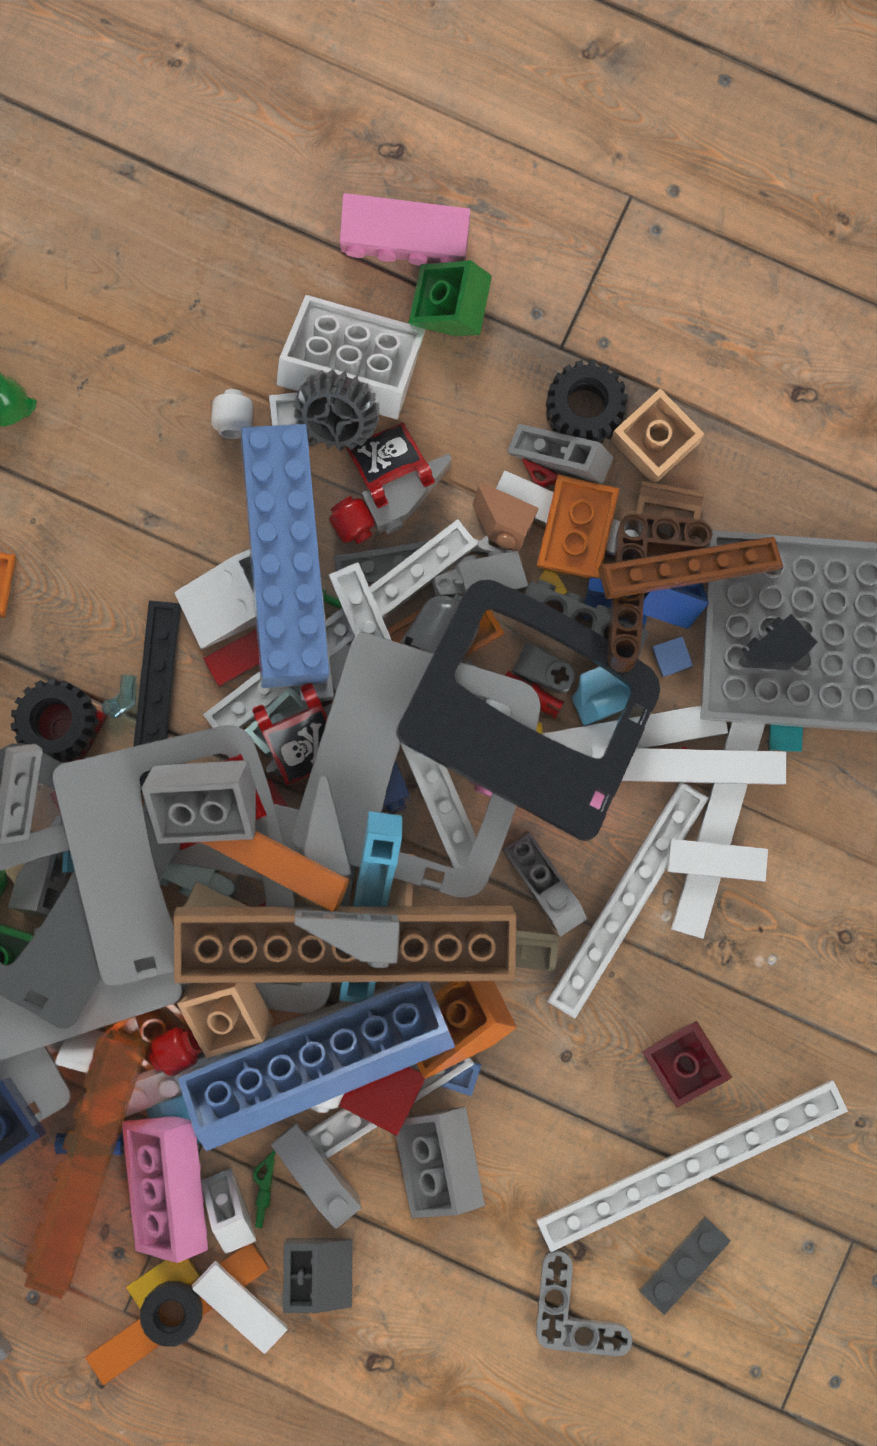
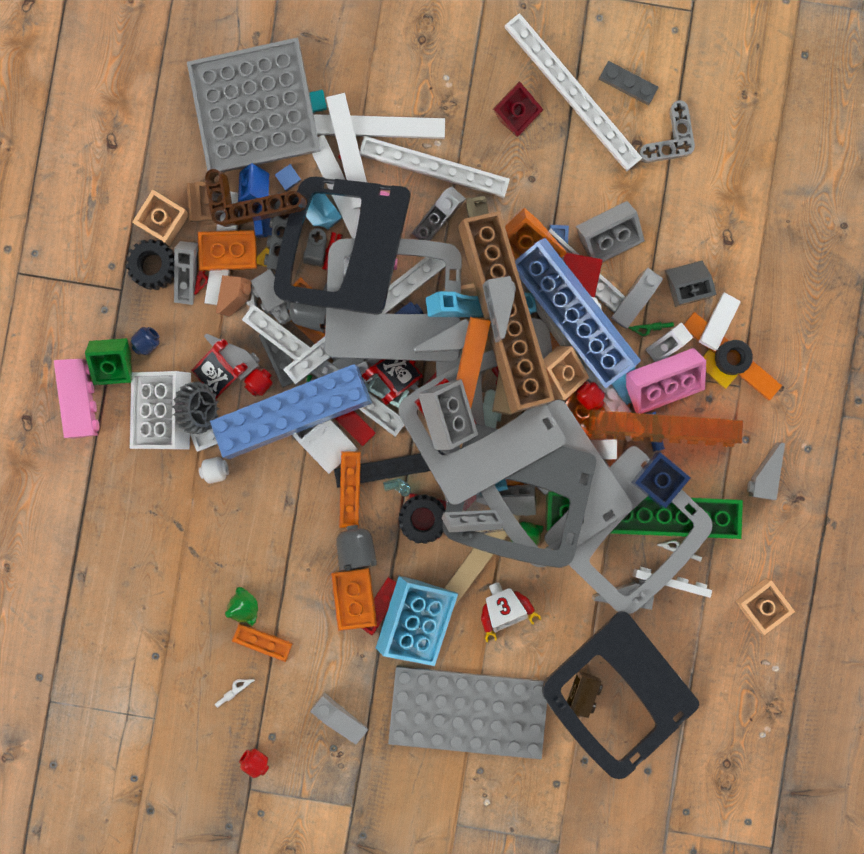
camera: 105 degrees left, 5 degrees up
(39, 601) = (355, 549): none -> dark grey cylinder
(139, 619) = (349, 488): none -> orange tile
(468, 361) = (145, 341): none -> dark blue head
(690, 567) = (234, 176): dark orange tile -> none
(717, 860) = (398, 121): white tile -> none
(780, 648) = (267, 113): black slope -> none

